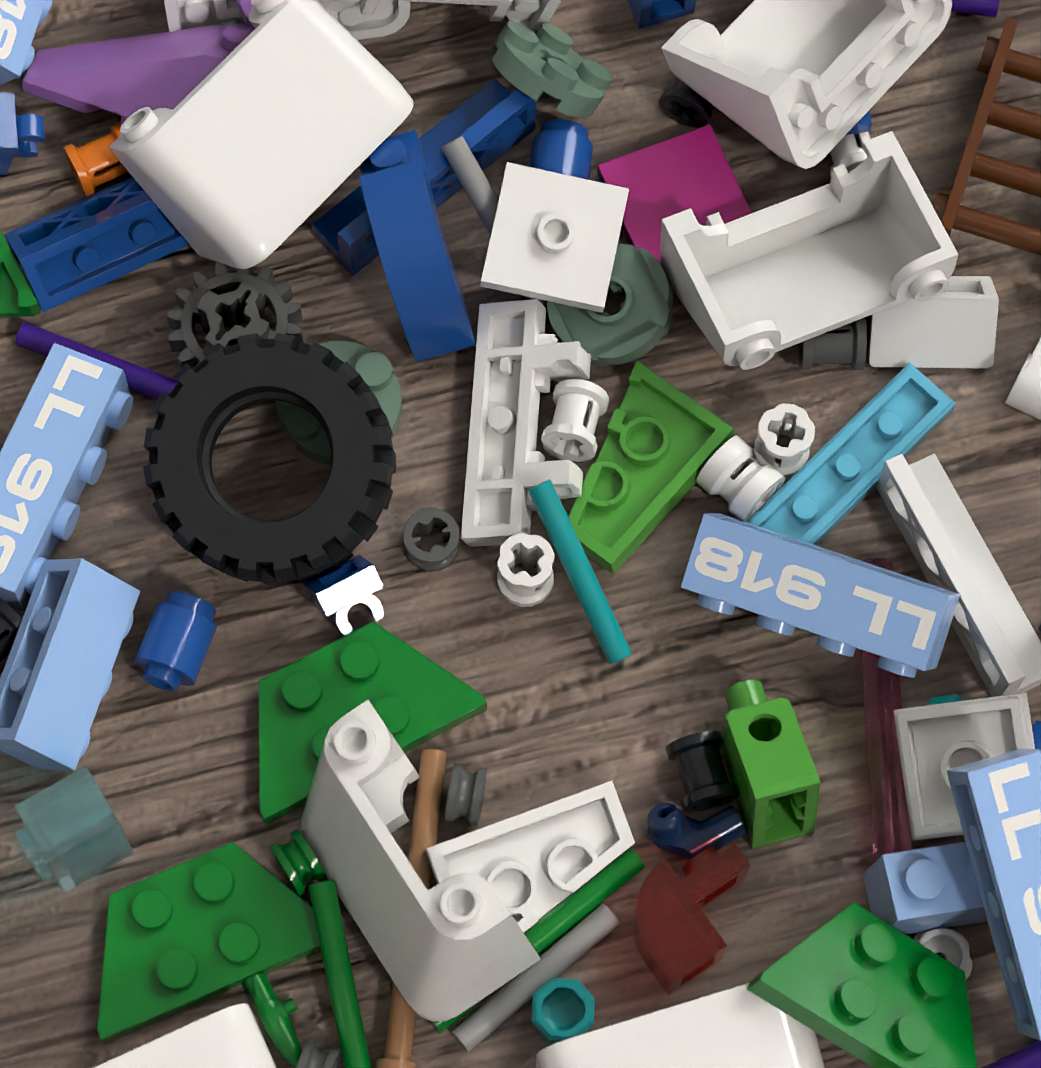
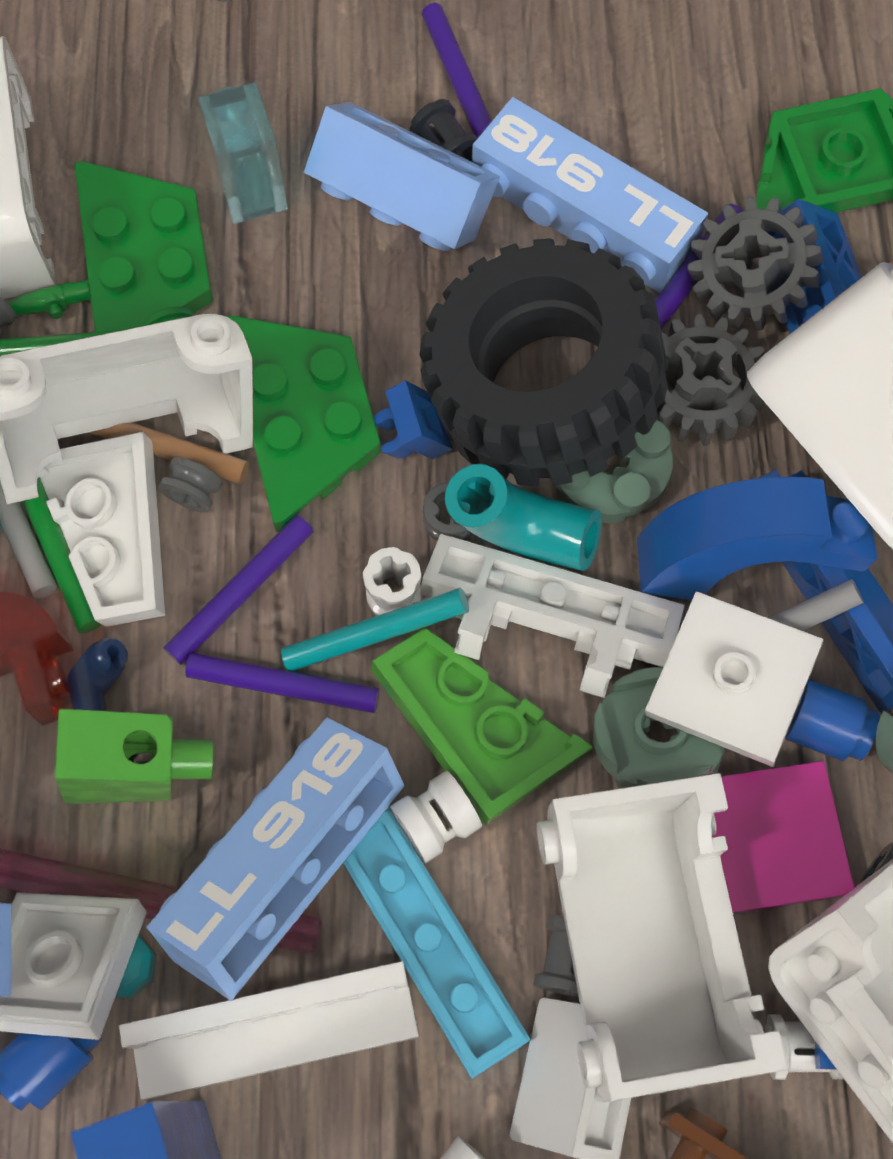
camera: 105 degrees right, 0 degrees up
(130, 287) = (730, 254): none -> dark grey gear
(176, 641) = (402, 275): blue brick -> none
(432, 453) = (521, 519): none -> teal cylinder
(561, 723) = (238, 589): none -> dark purple bar
(575, 420) = (538, 667): white bush -> none
(645, 657) = (282, 682): none -> dark purple bar
(702, 771) = (148, 696): black bush -> none
(801, 434) = (460, 853): white bush -> none

